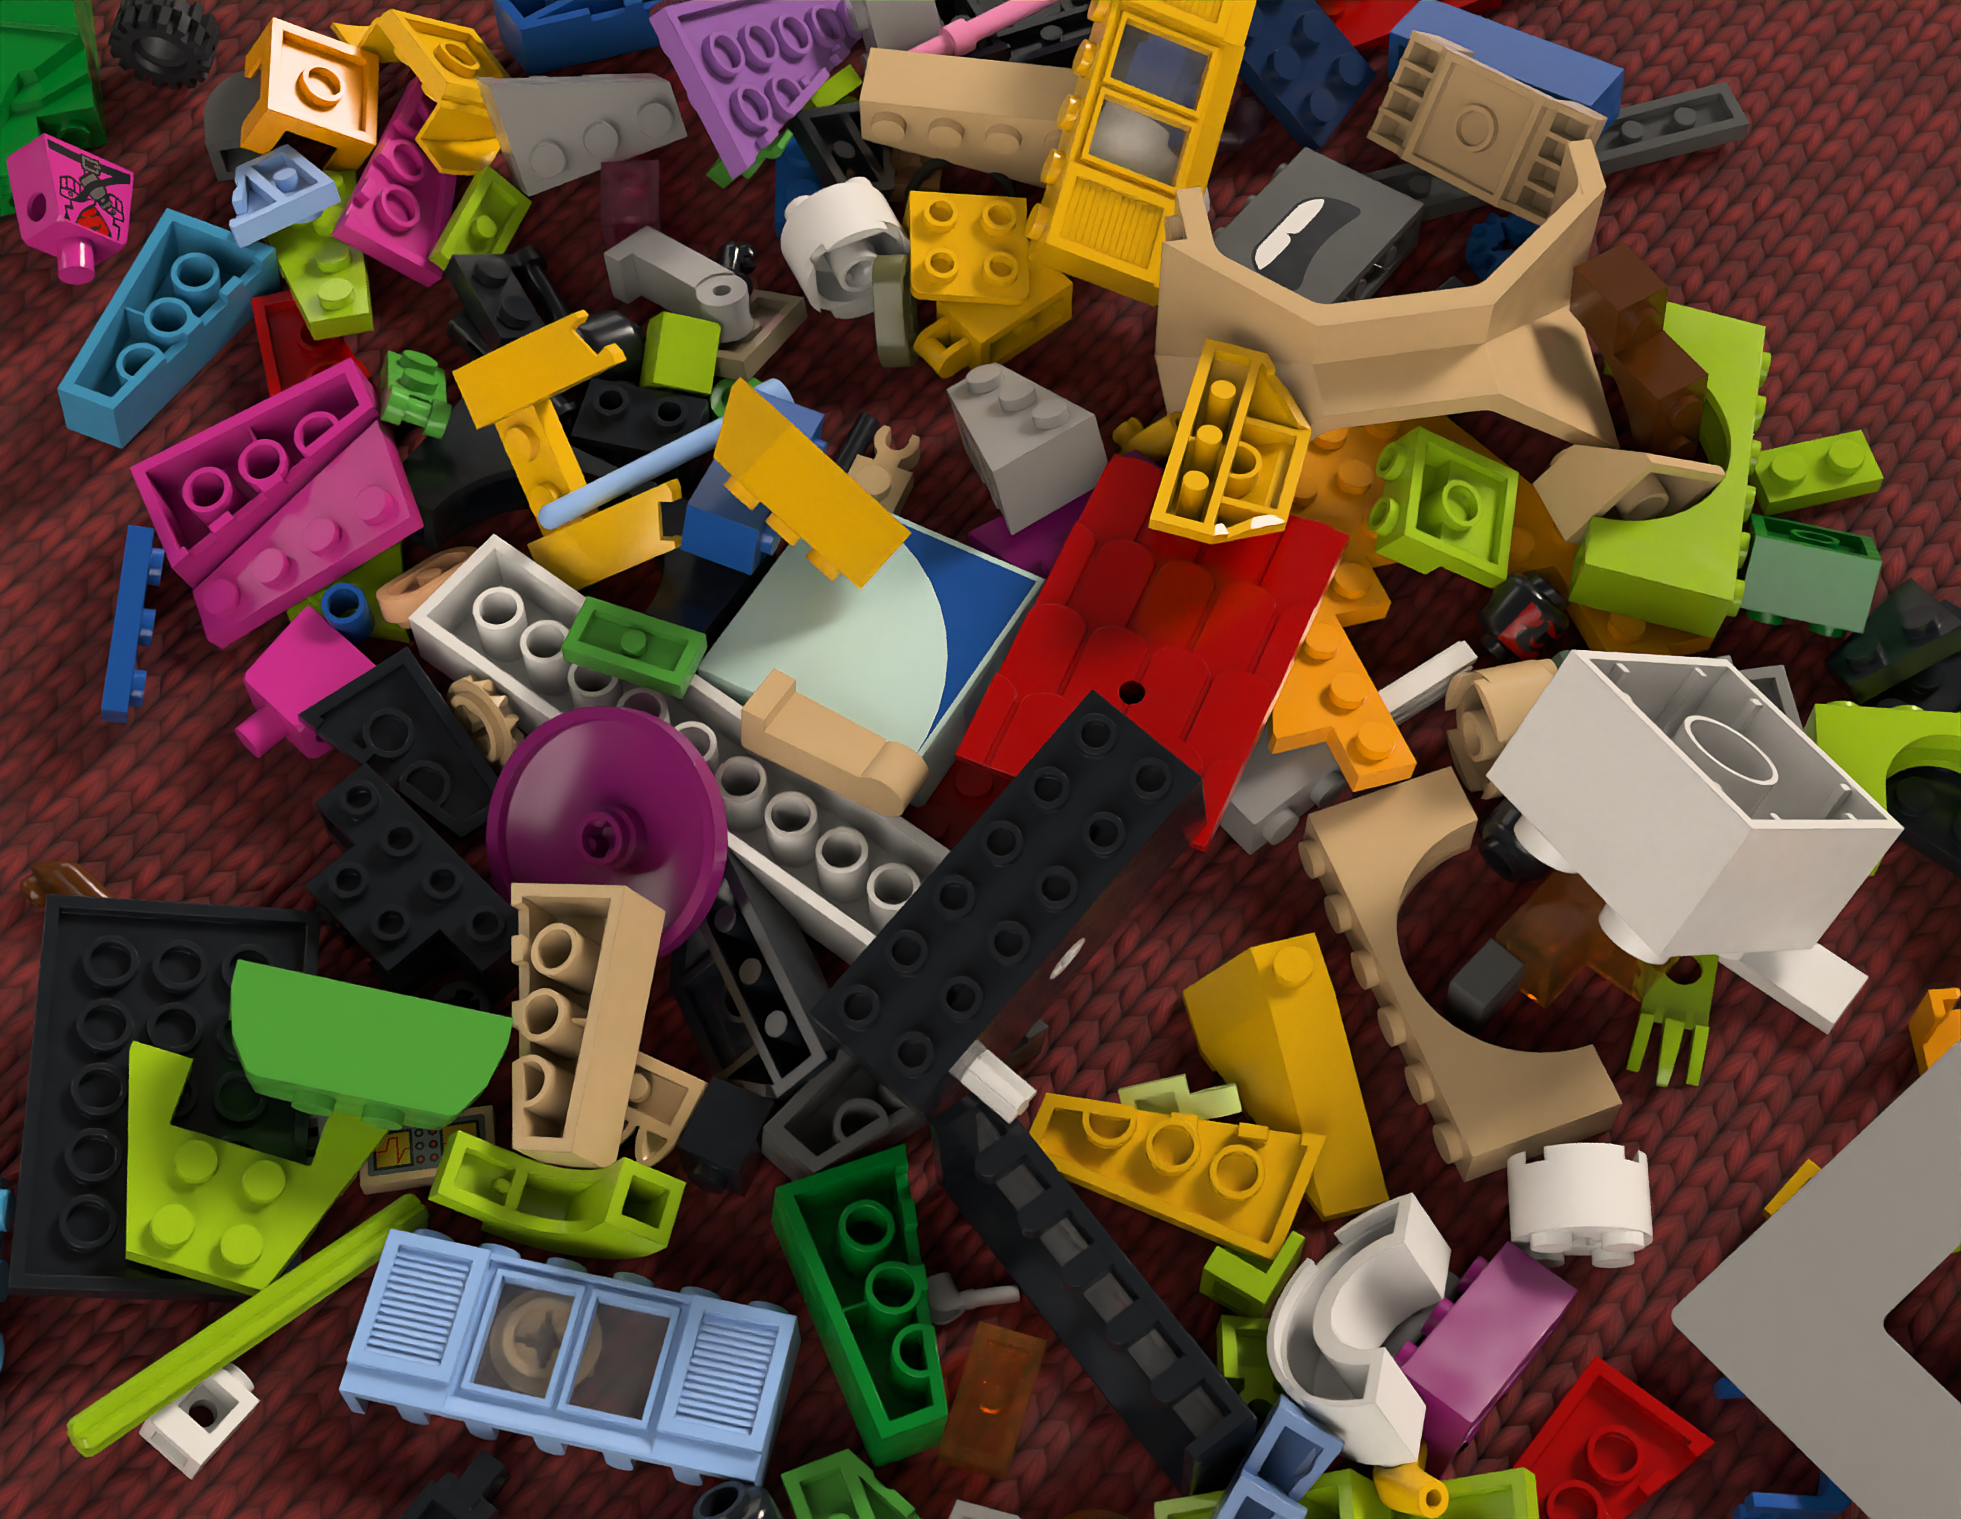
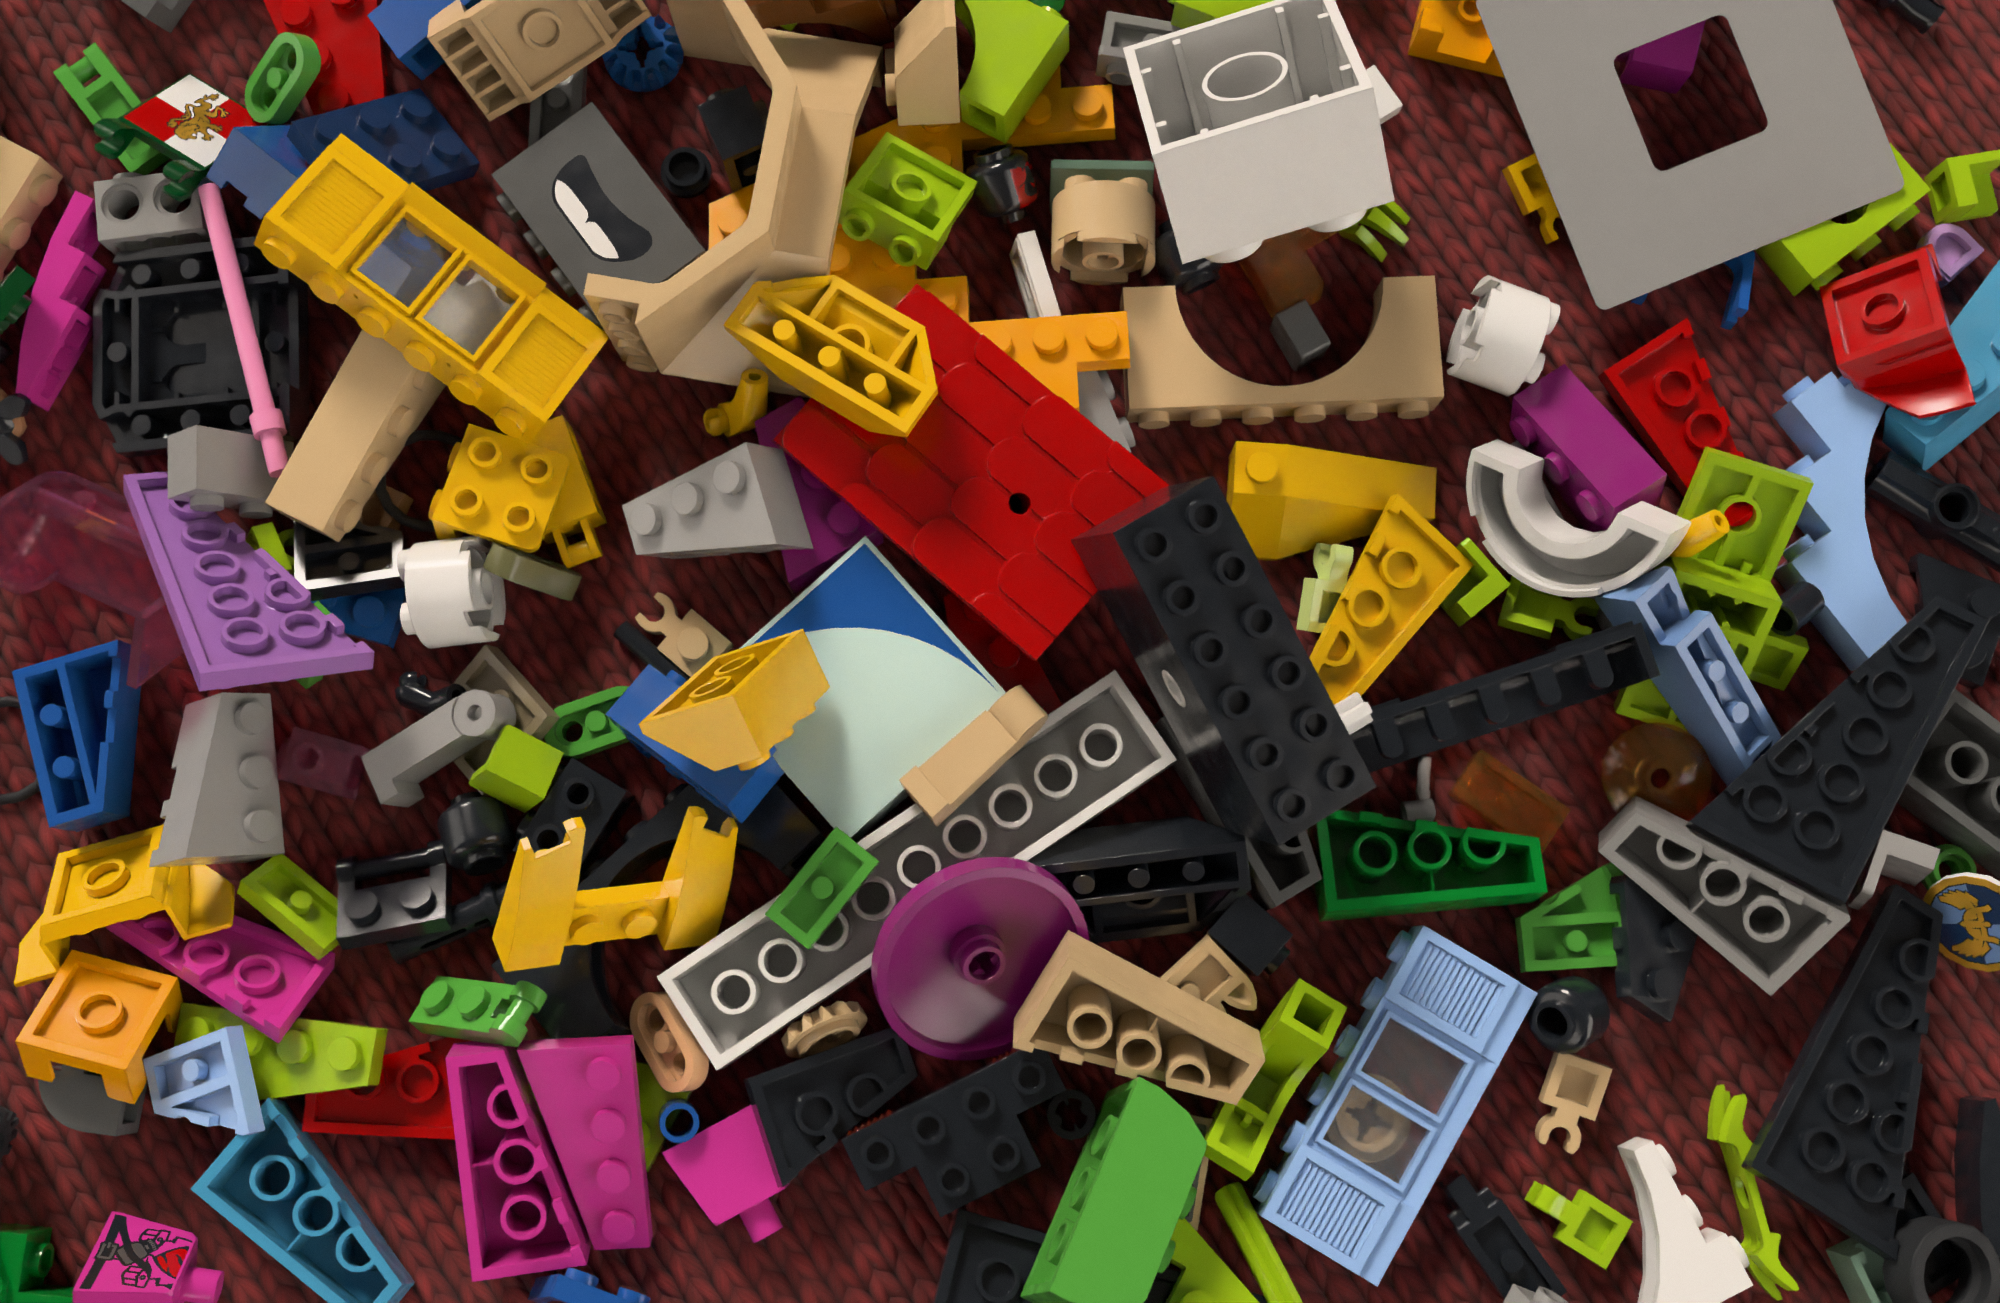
camera: 75 degrees left, 20 degrees up
(642, 469) = (592, 710): light blue piece -> none

